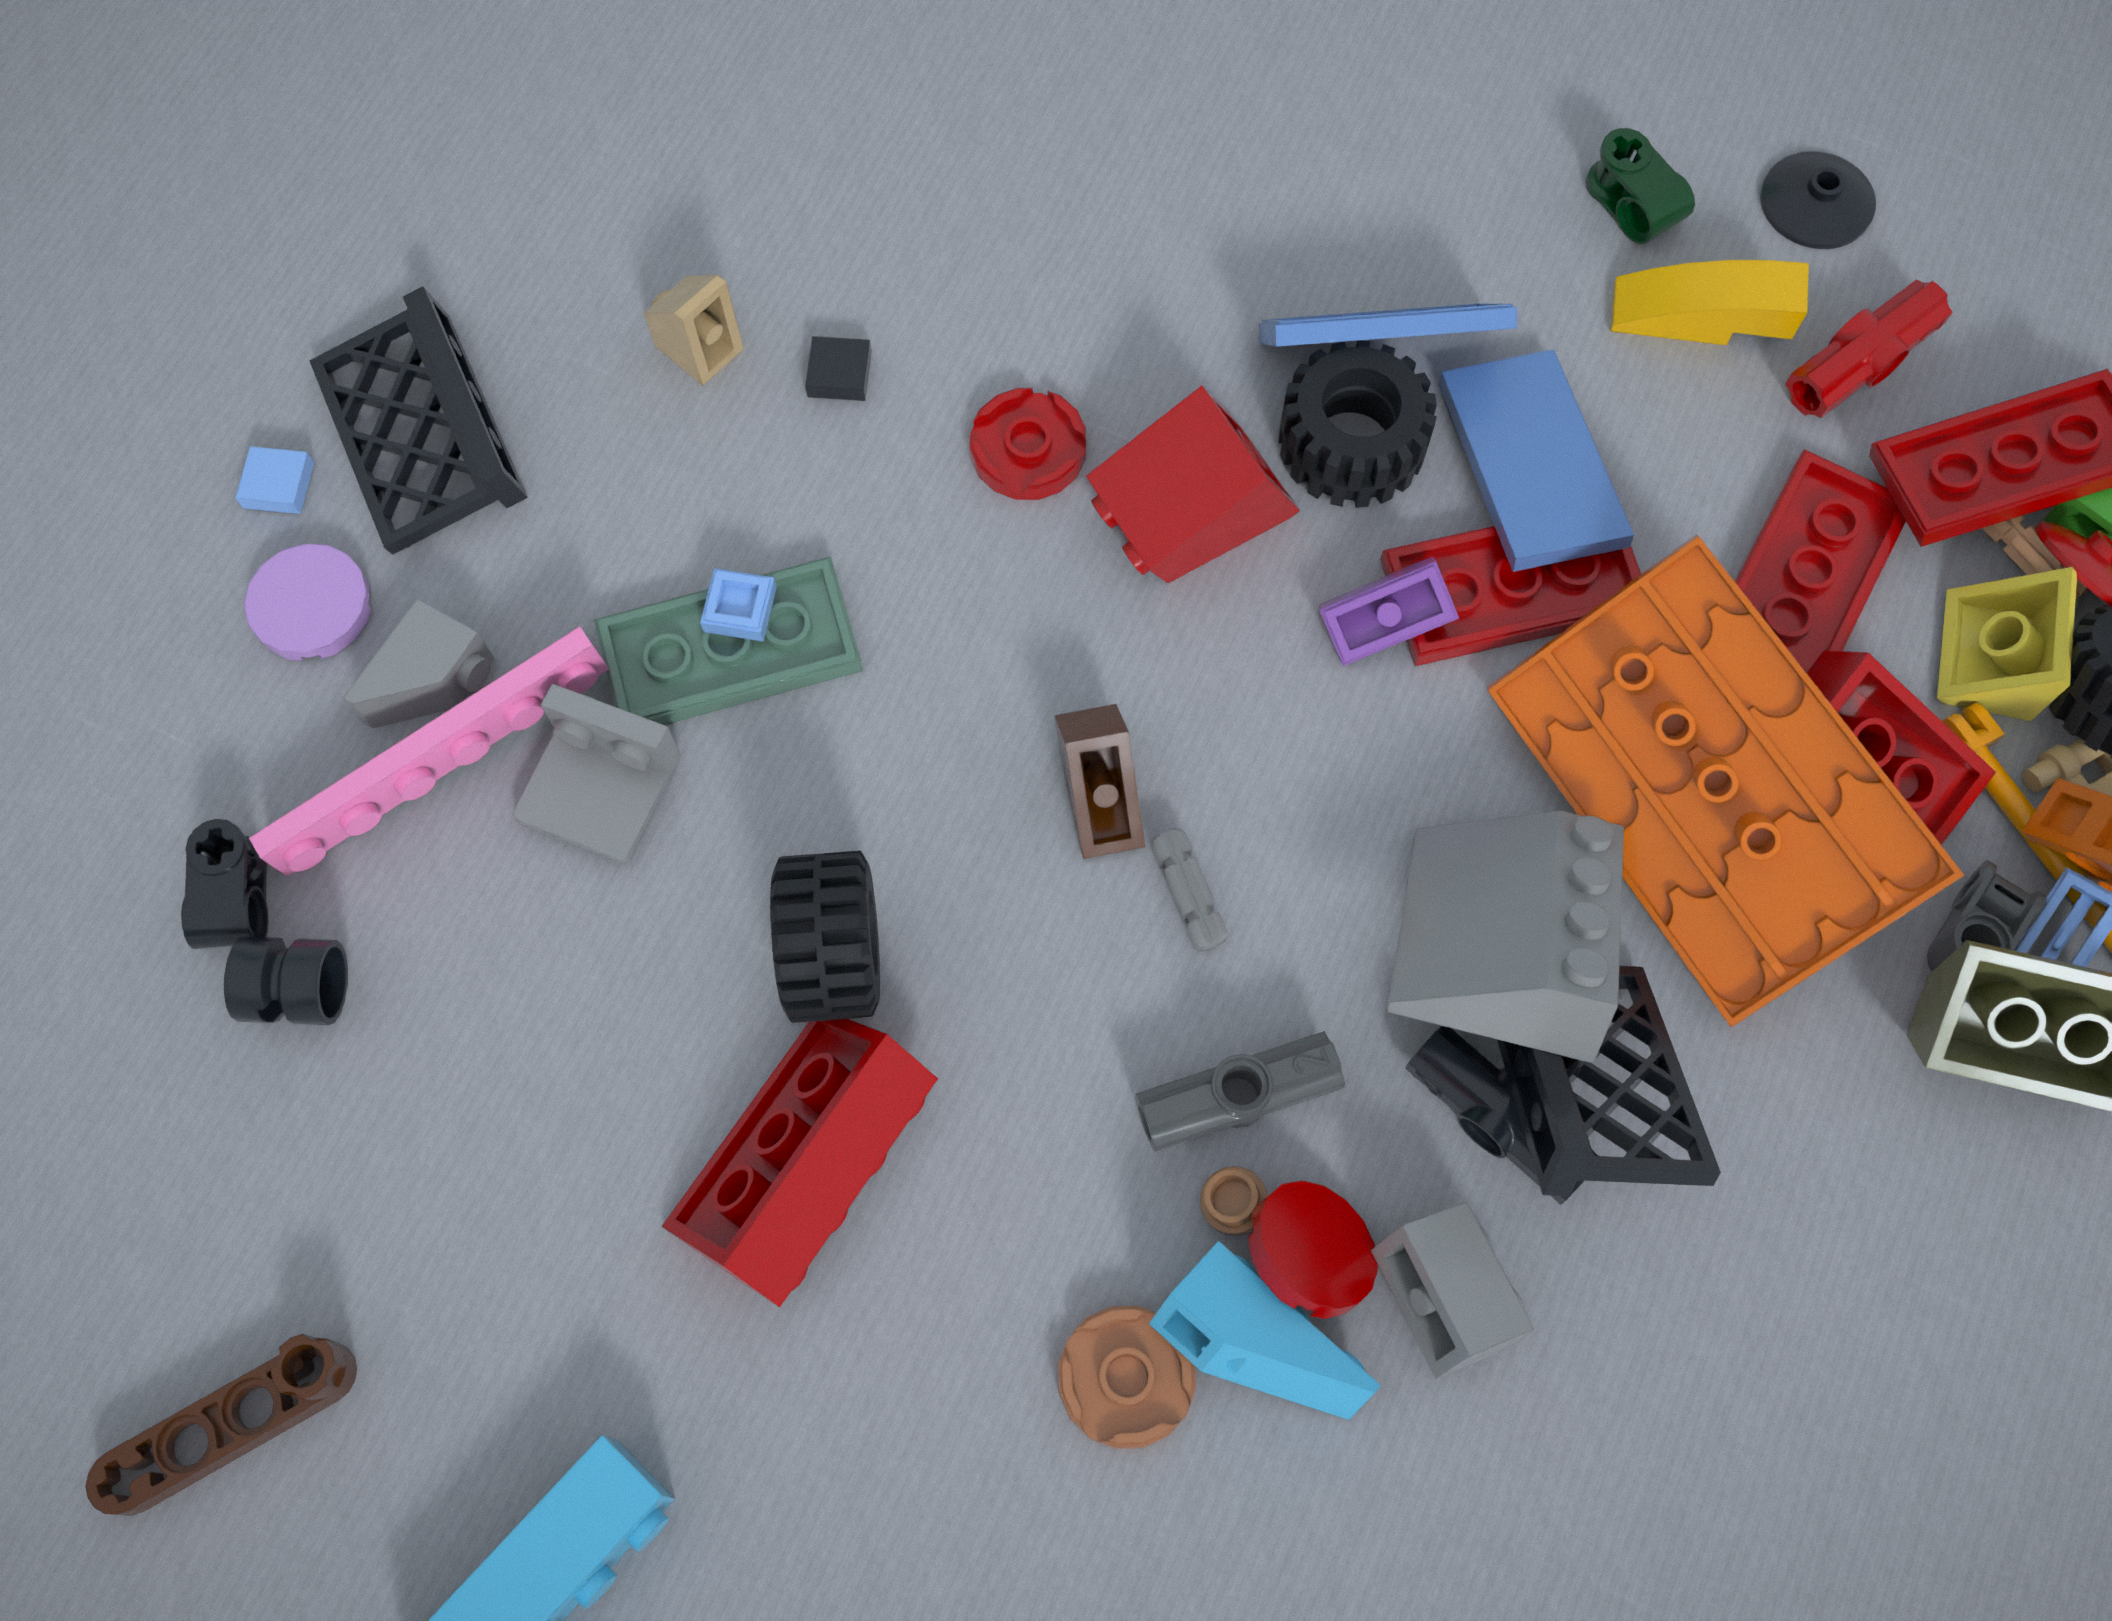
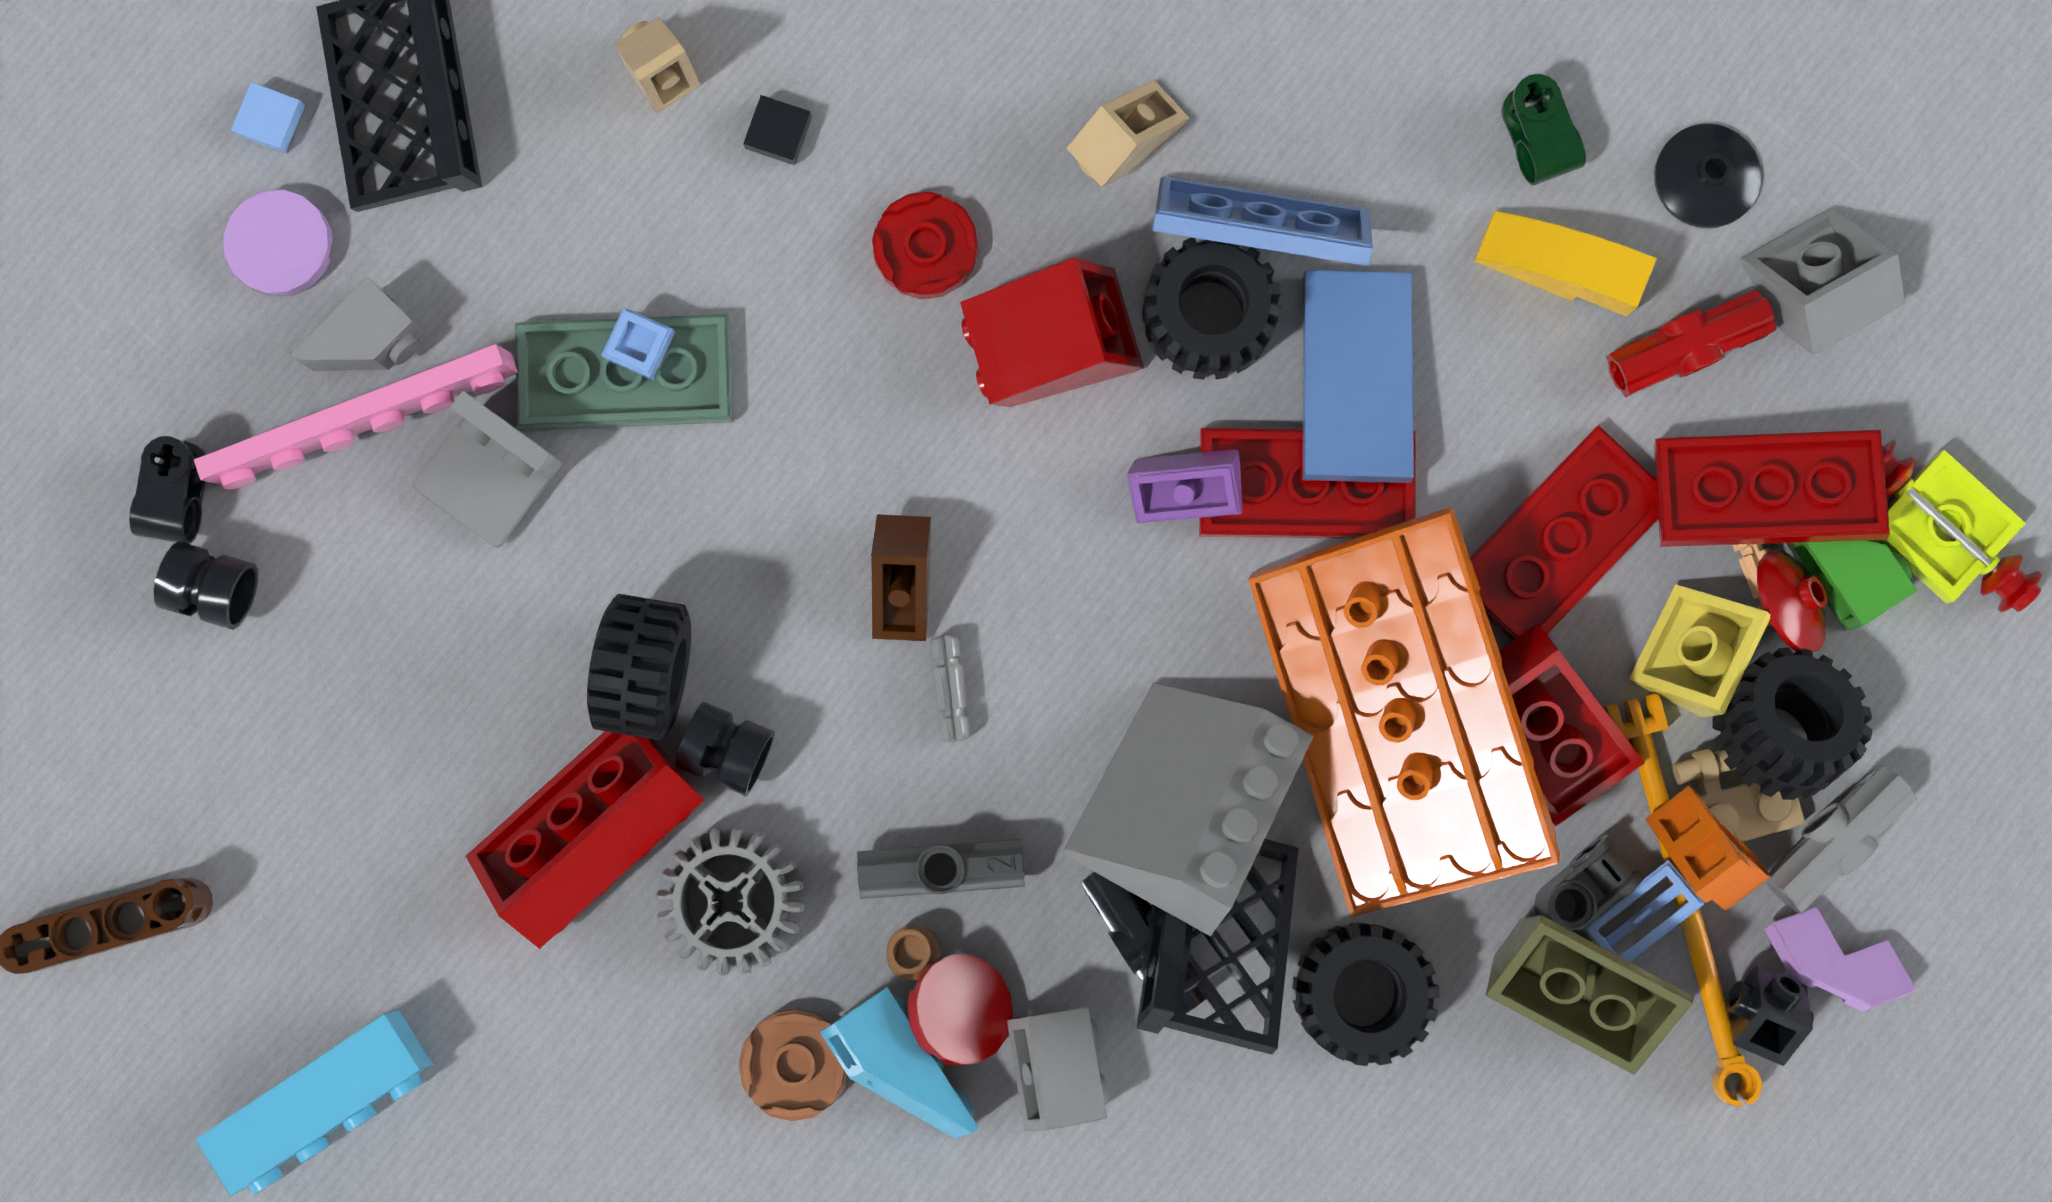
camera: 15 degrees right, 15 degrees up
(970, 1017) = (724, 748): none -> black wheel
(1028, 1208) = (710, 882): none -> light grey gear
(1209, 285) = (1126, 132): none -> tan slope
(1824, 1075) = (1411, 1005): none -> black tyre
(1986, 255) = (1826, 279): none -> light grey slope

